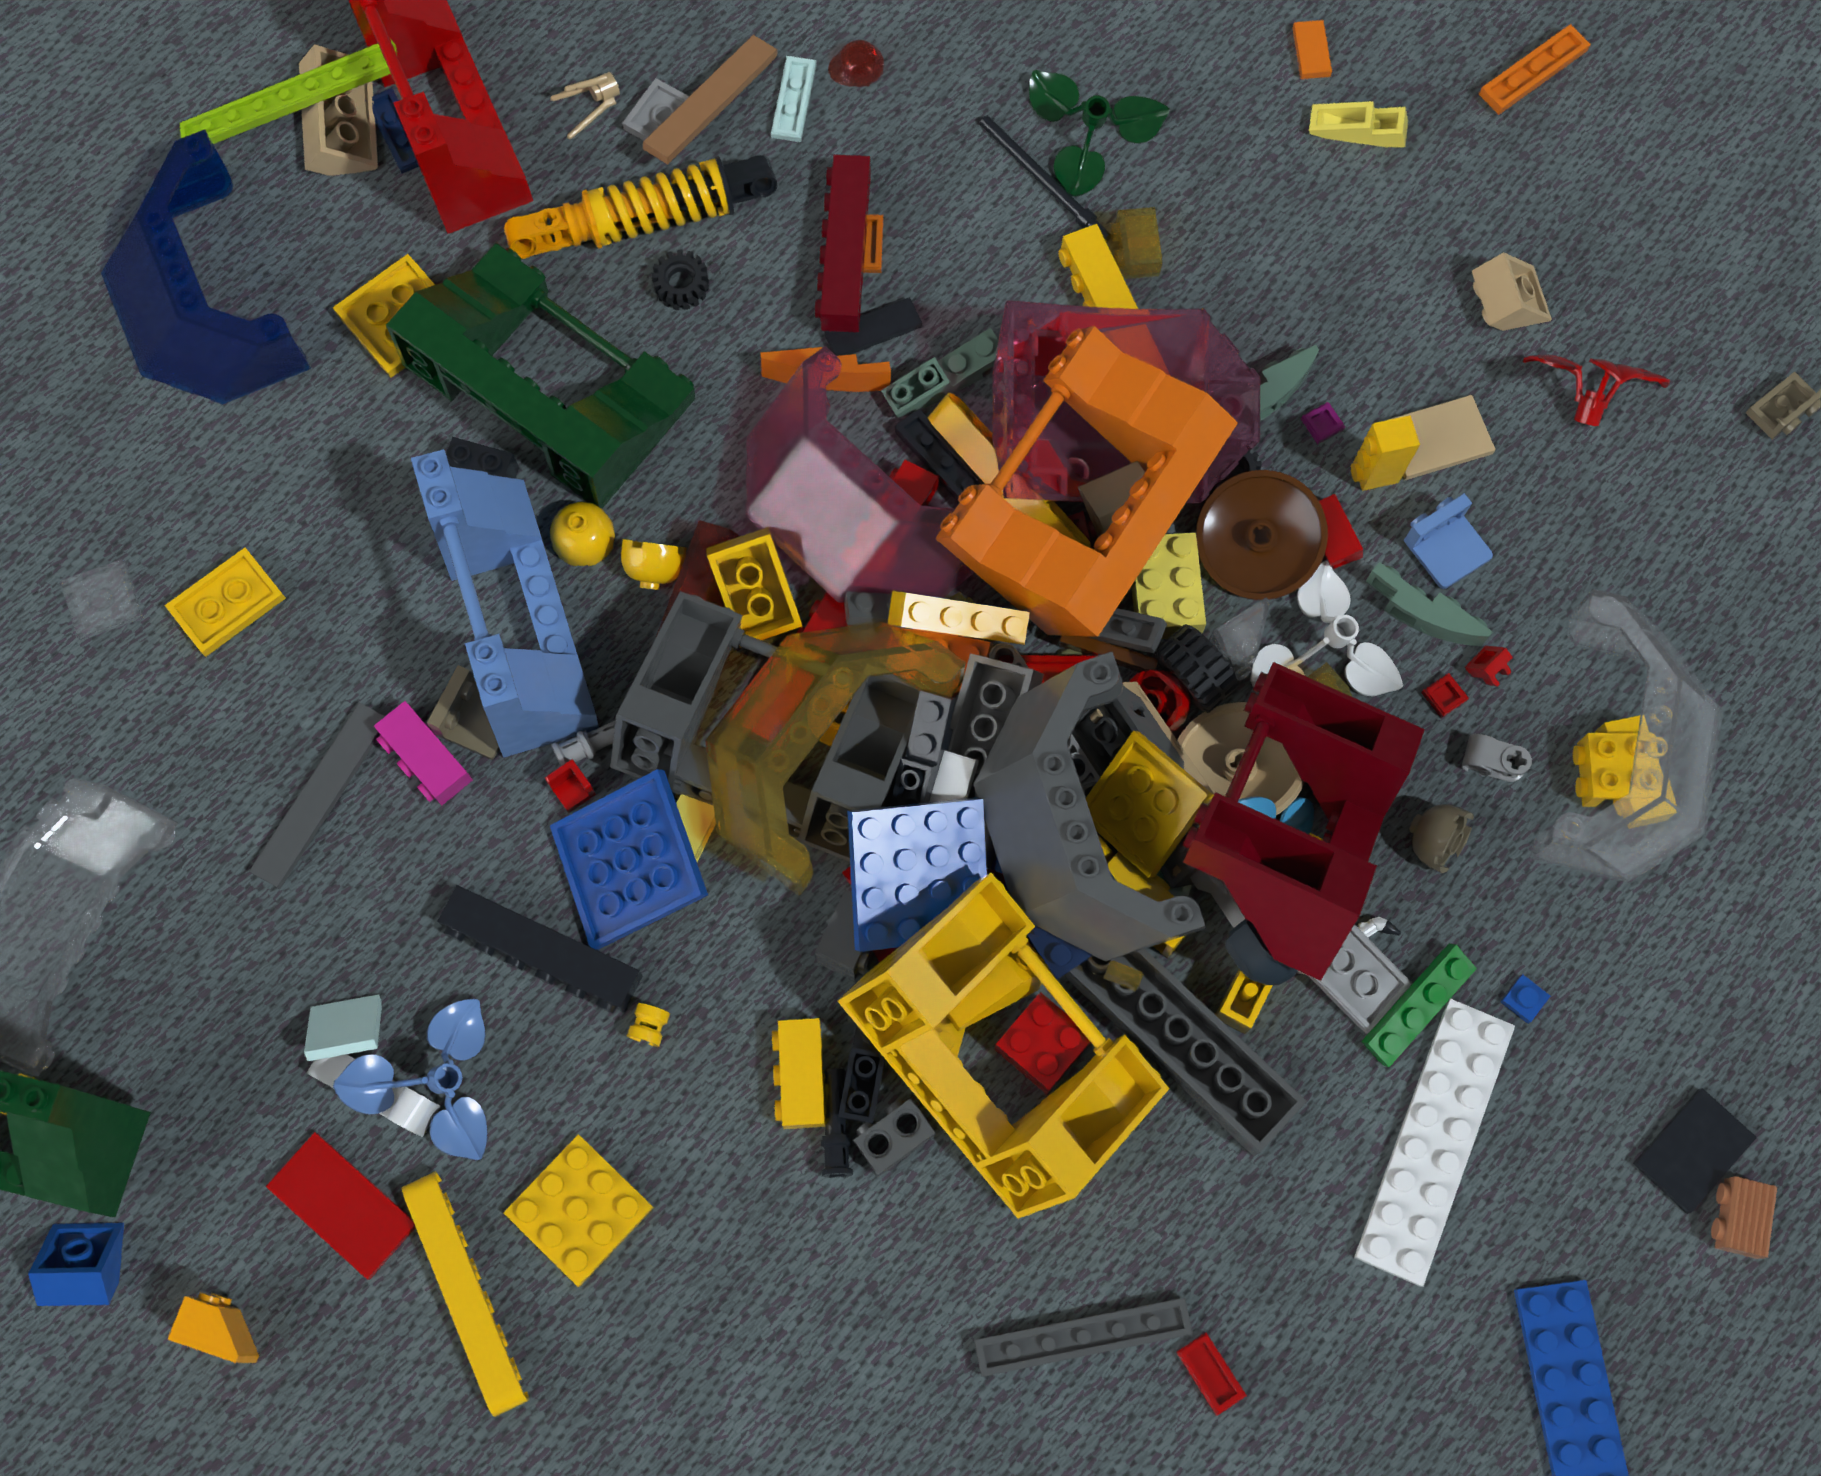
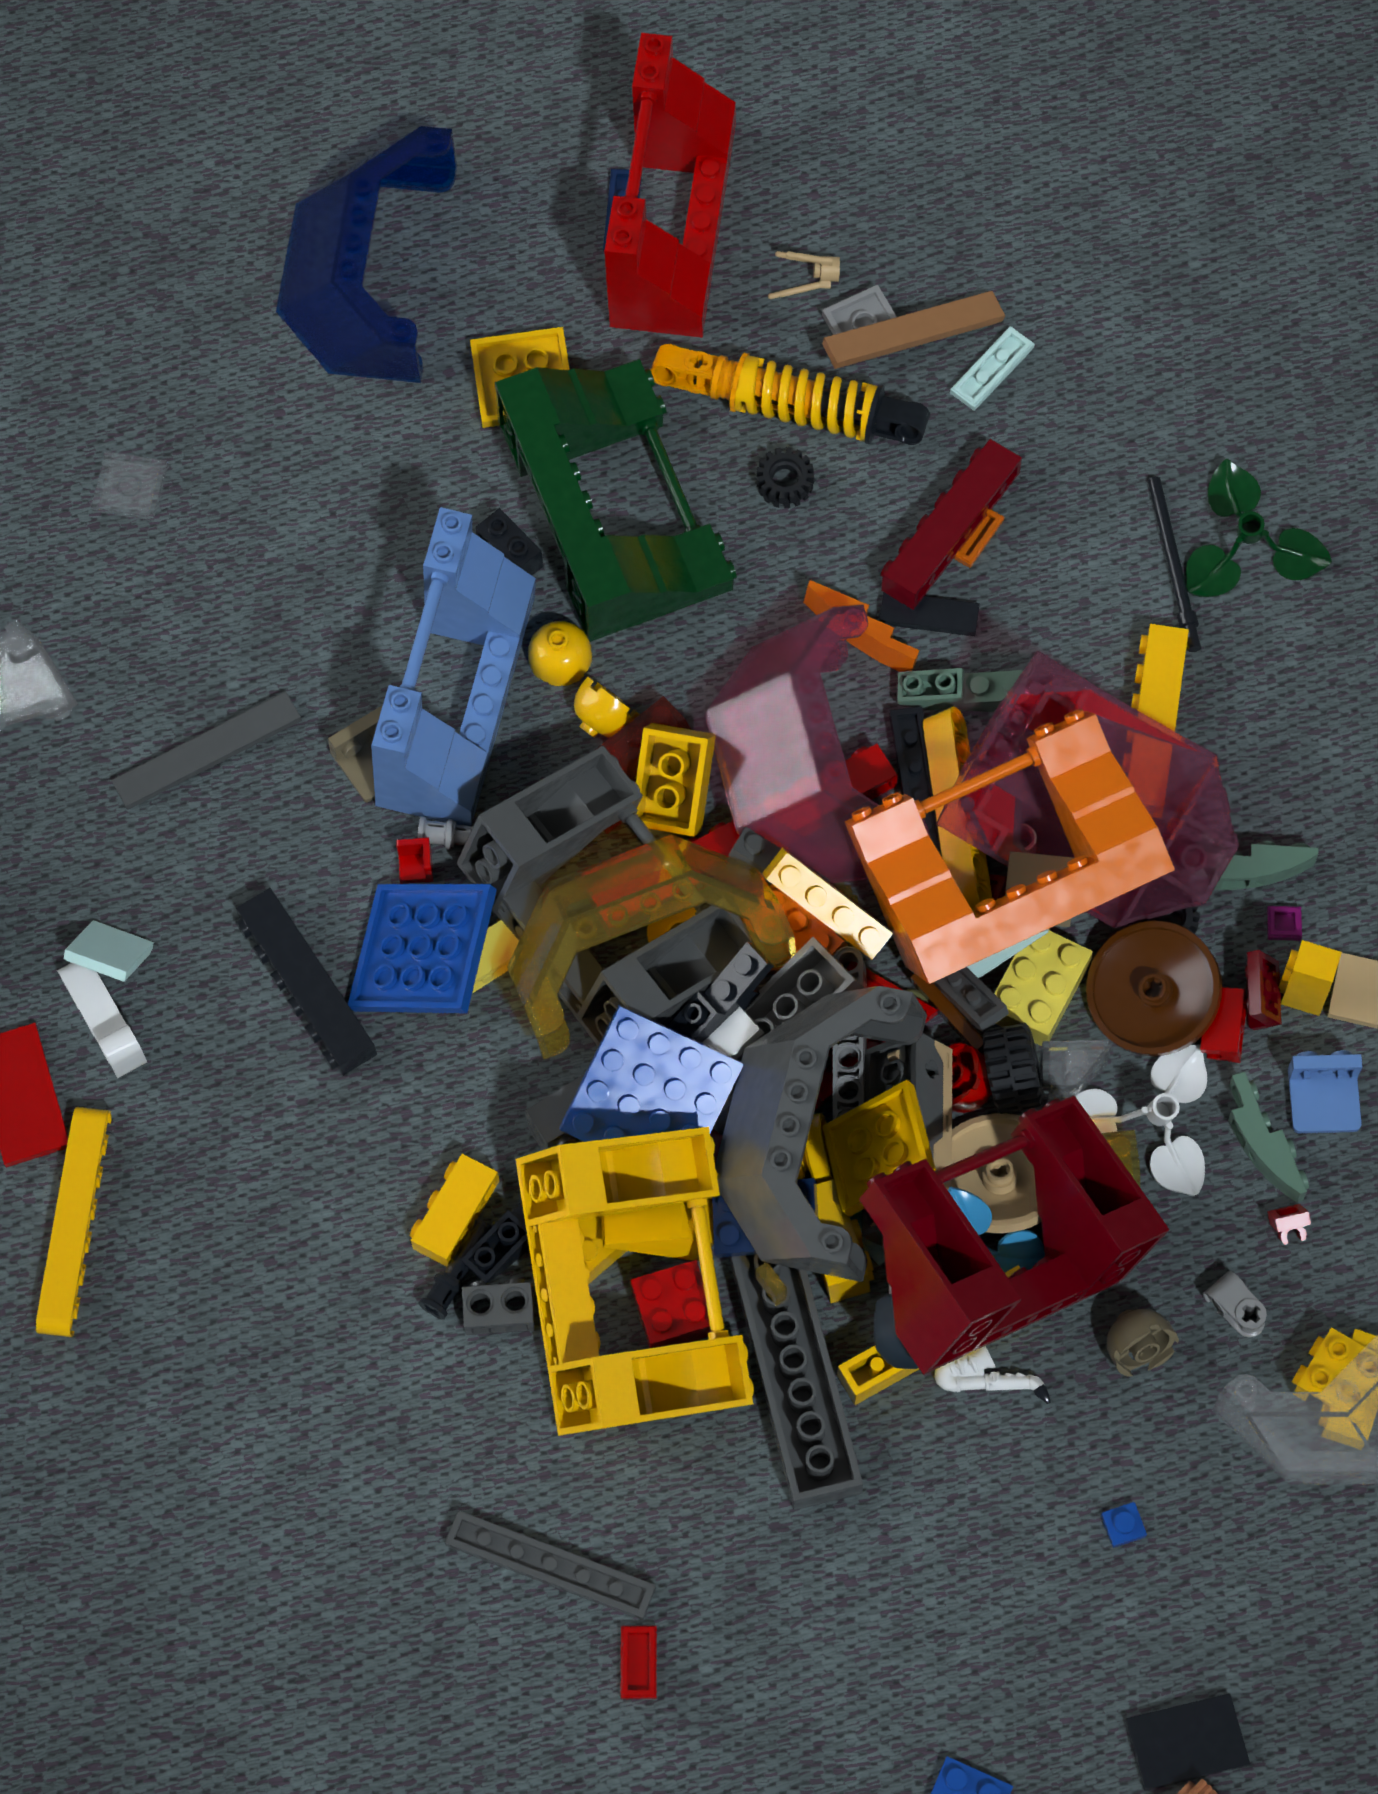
camera: 35 degrees right, 5 degrees down
(225, 602) = (227, 544): yellow plate -> none
(290, 95) = (541, 134): lime tile -> none
(341, 129) = (579, 168): tan slope -> none
(421, 754) = (309, 764): dark pink brick -> none
(461, 1127) = (150, 1087): medium blue plant -> none
(578, 1210) = (205, 1212): yellow plate -> none
(651, 1017) = (359, 1090): yellow wheel -> none
(857, 64) = (1070, 368): clear red hat -> none
(1137, 243) = (1219, 667): clear yellow brick -> none
(1343, 482) = (1263, 990): none -> dark red bracket
(1363, 981) = (982, 1409): light grey tile -> none
(1419, 1005) = (1024, 1472): green plate -> none
(1434, 1143) = (960, 1593): white plate -> none
(1445, 695) = (1231, 1225): red tile -> none

